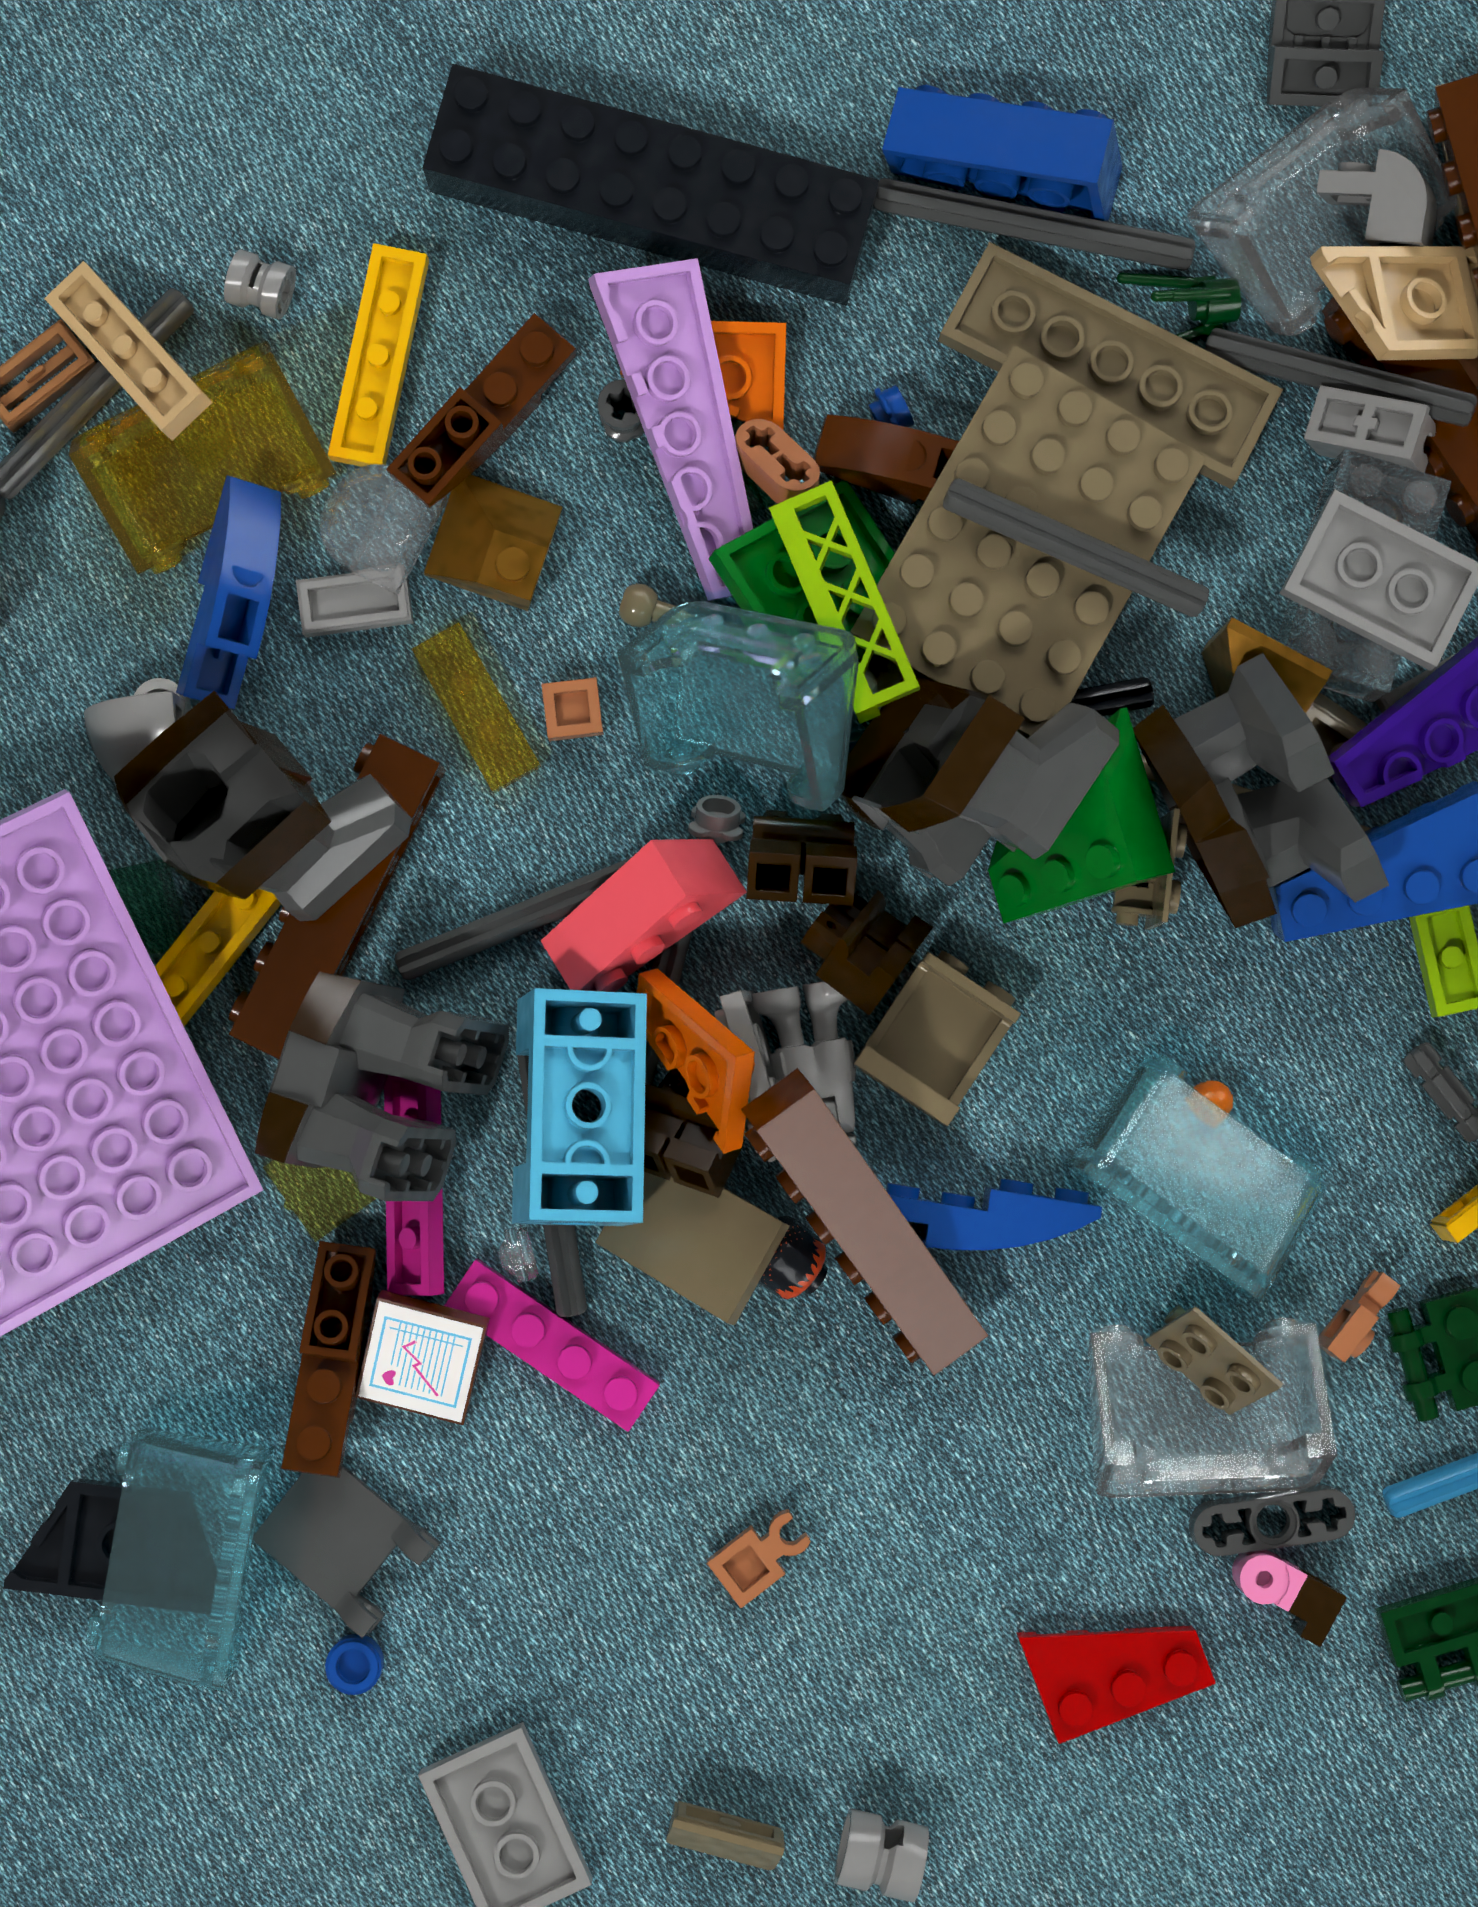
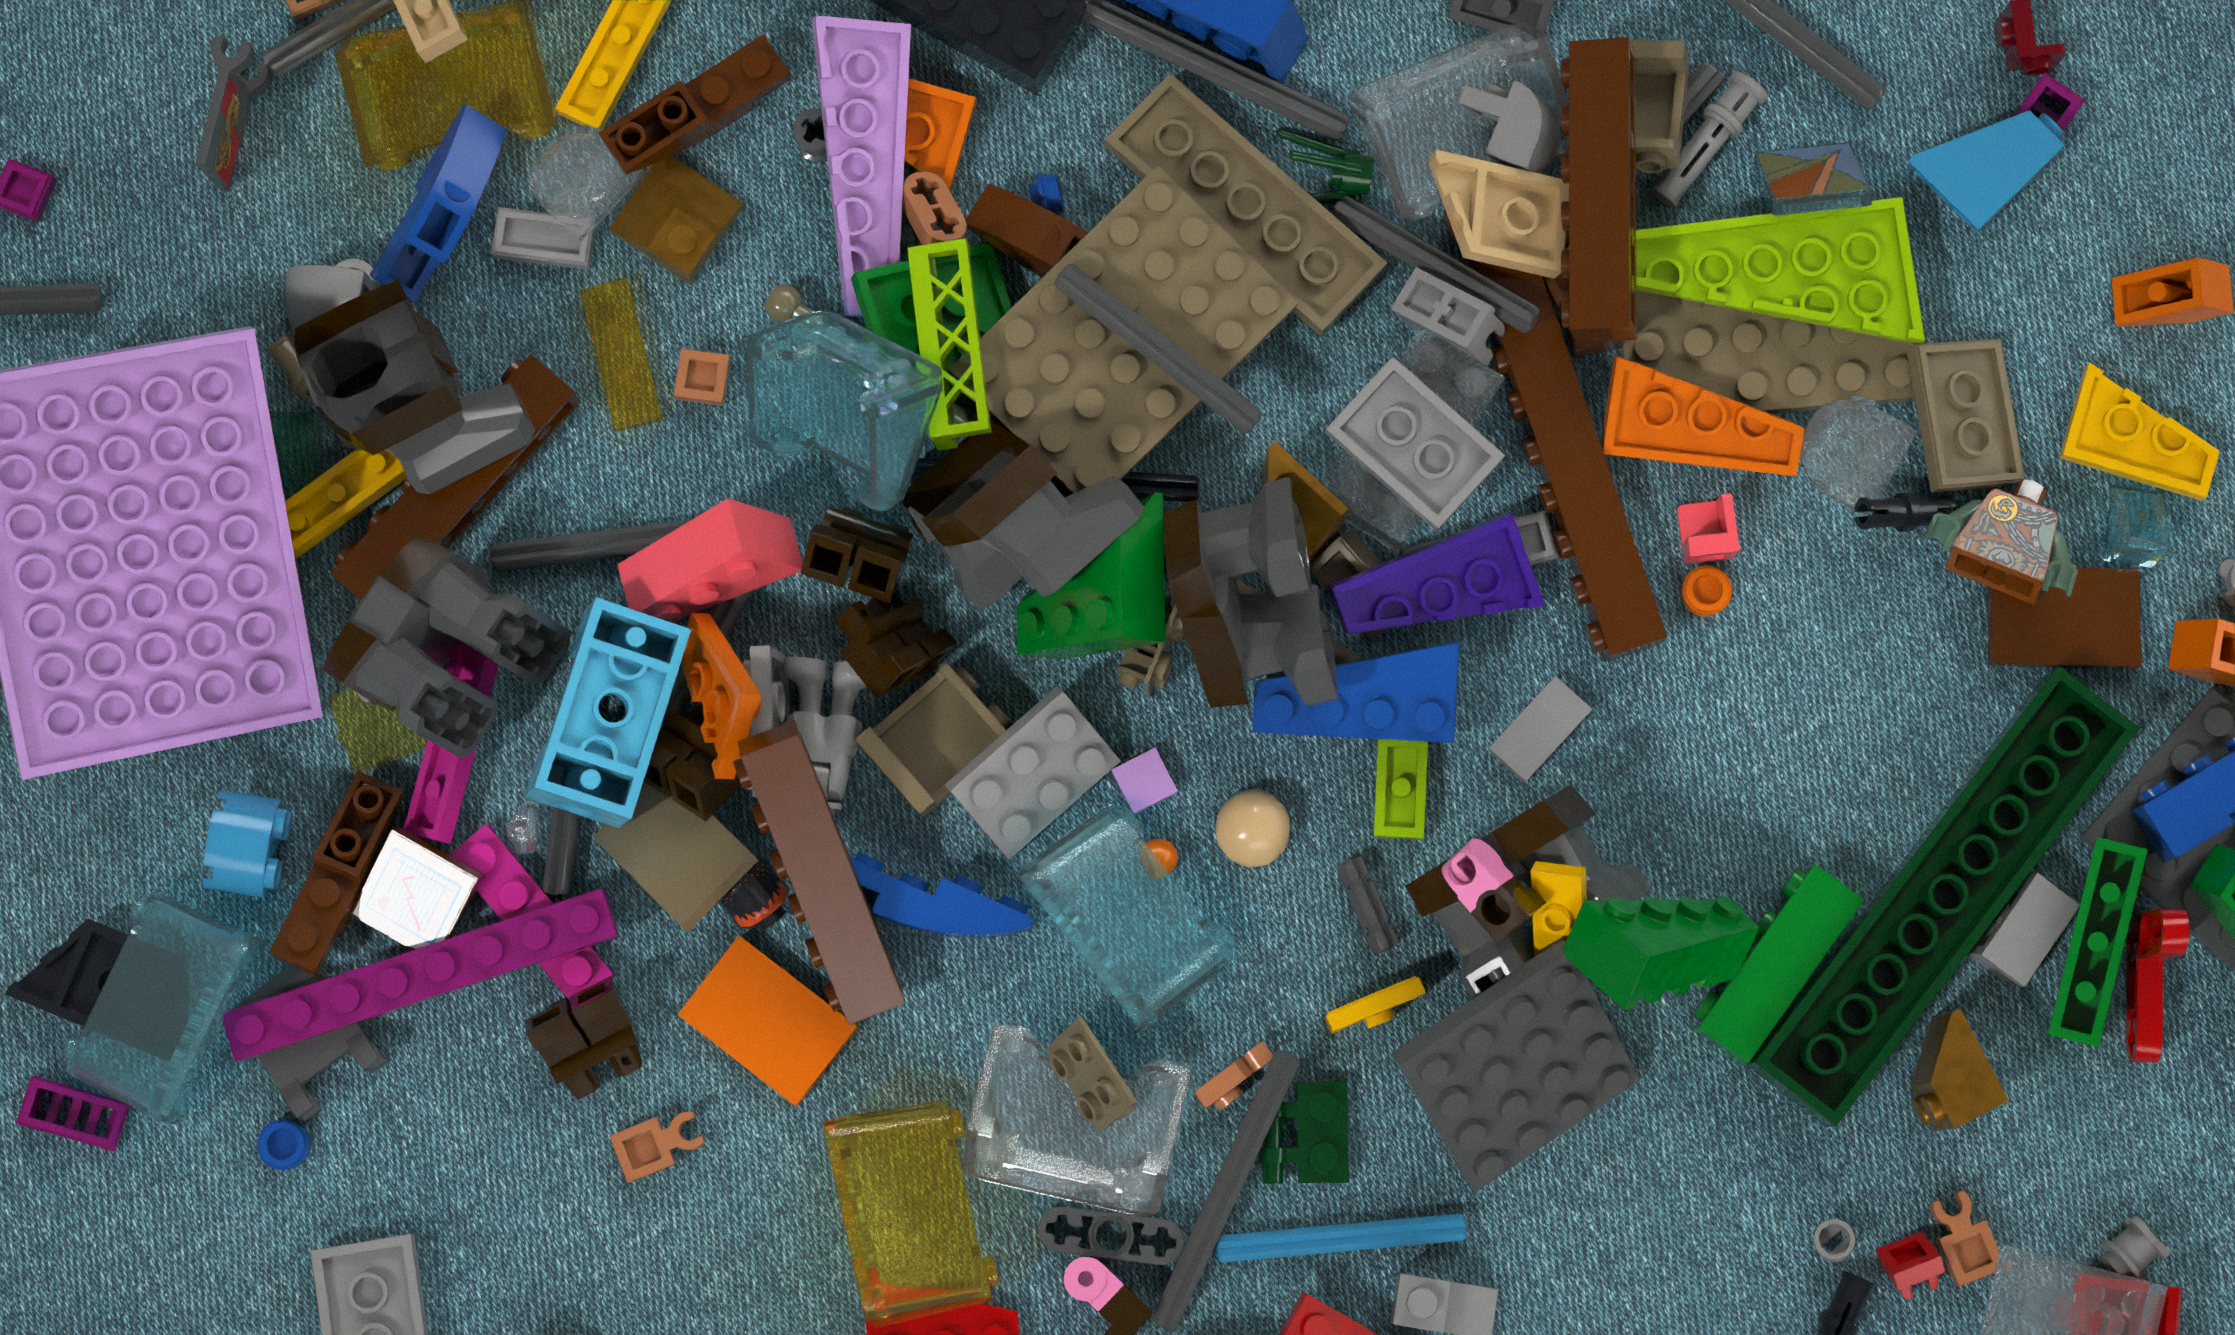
camera: 25 degrees right, 5 degrees down
(91, 1716) = (32, 1099): none -> magenta slope
(109, 805) = (285, 355): none -> dark tan pin
(220, 1356) = (245, 844): none -> dark azure brick
(452, 1446) = (420, 975): none -> magenta plate
(651, 1464) = (571, 1053): none -> dark brown hips
(717, 819) = (799, 502): light grey plate -> none
(839, 1390) = (767, 1021): none -> orange tile
(1054, 1047) = (1032, 772): none -> light grey plate
(1058, 1560) = (908, 1212): none -> clear yellow windscreen
(1171, 1022) = (1144, 781): none -> lavender tile
(1301, 1041) = (1252, 827): none -> tan hair
(1385, 1440) = (1225, 1190): none -> dark grey axle

